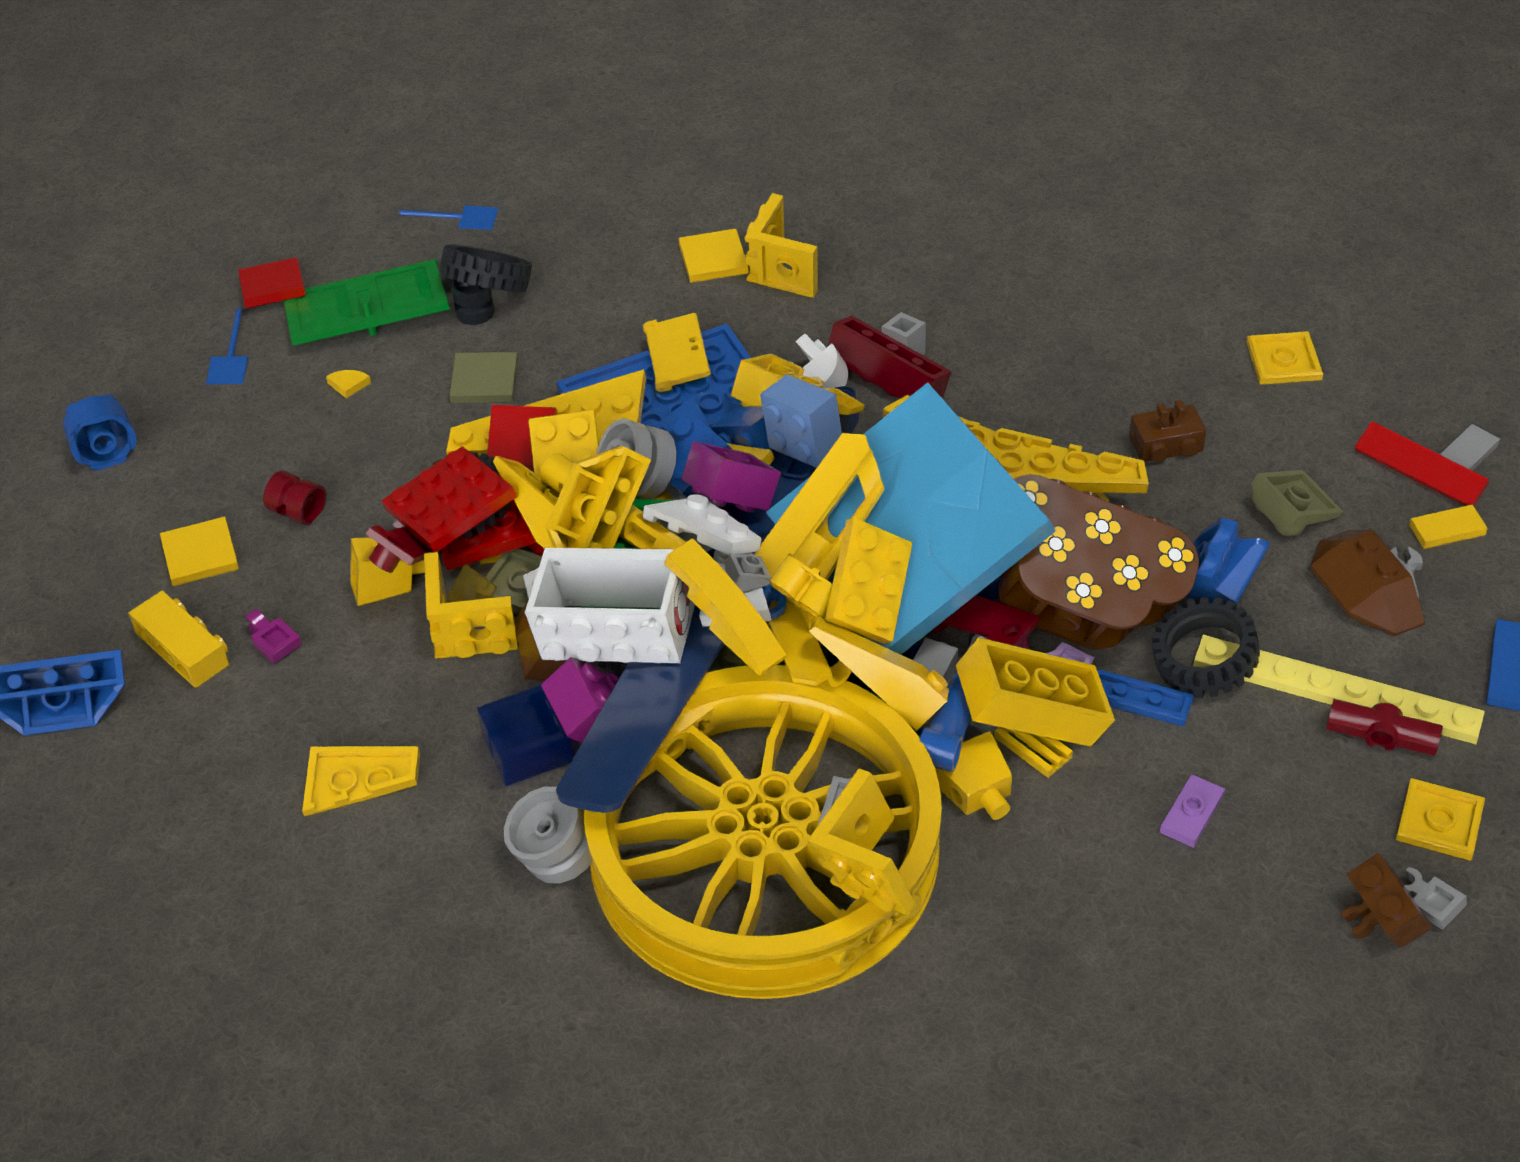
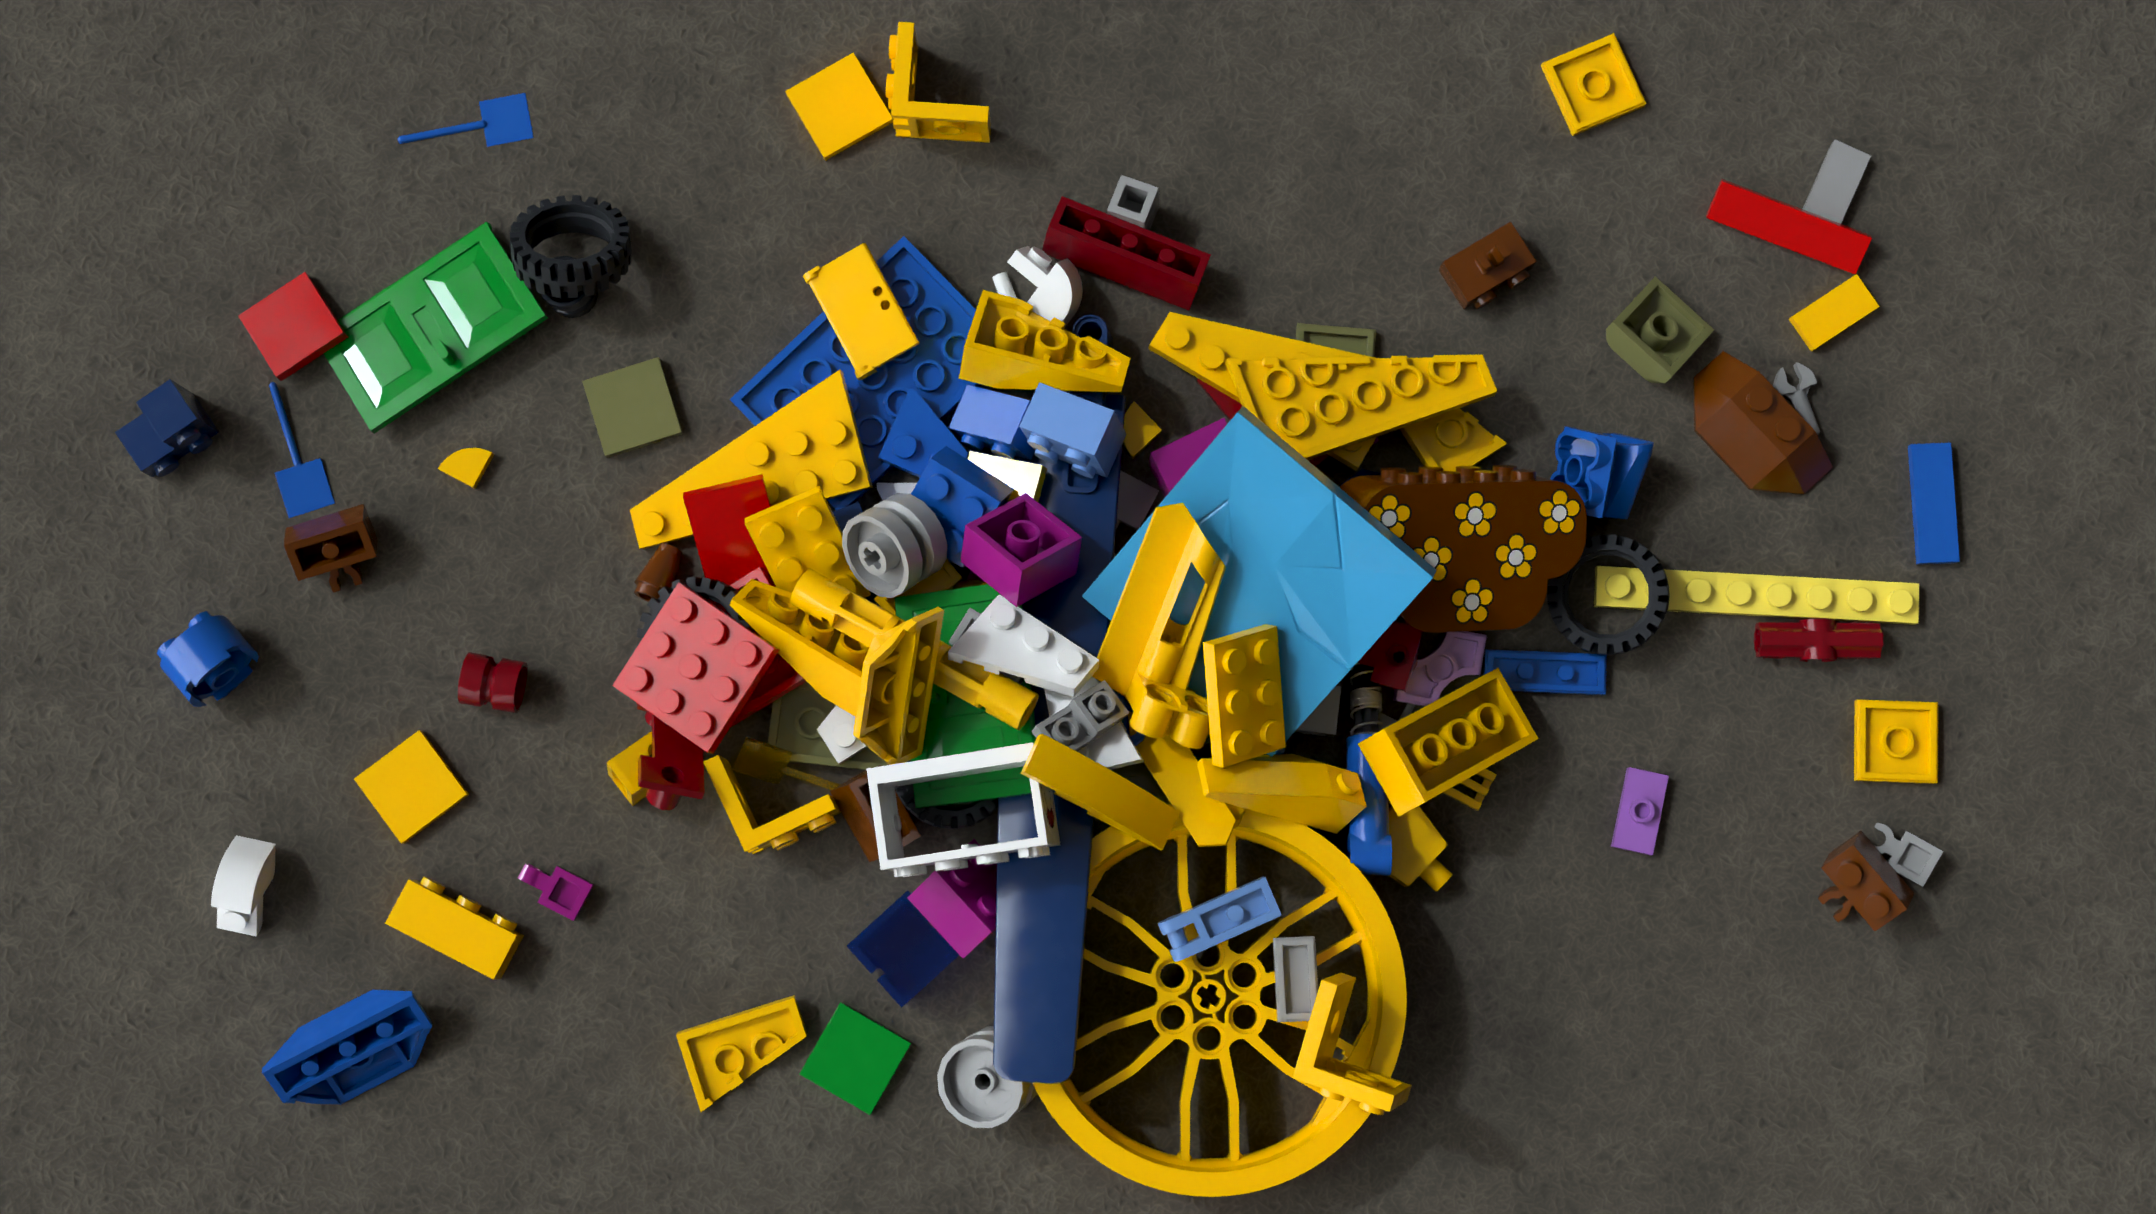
camera: 20 degrees left, 35 degrees up
(35, 565) = (240, 885): none -> white brick
(154, 311) = (167, 429): none -> dark blue brick
(225, 391) = (331, 544): none -> reddish brown brick
(447, 811) = (855, 1058): none -> green tile
(792, 751) = (1221, 918): none -> medium blue plate

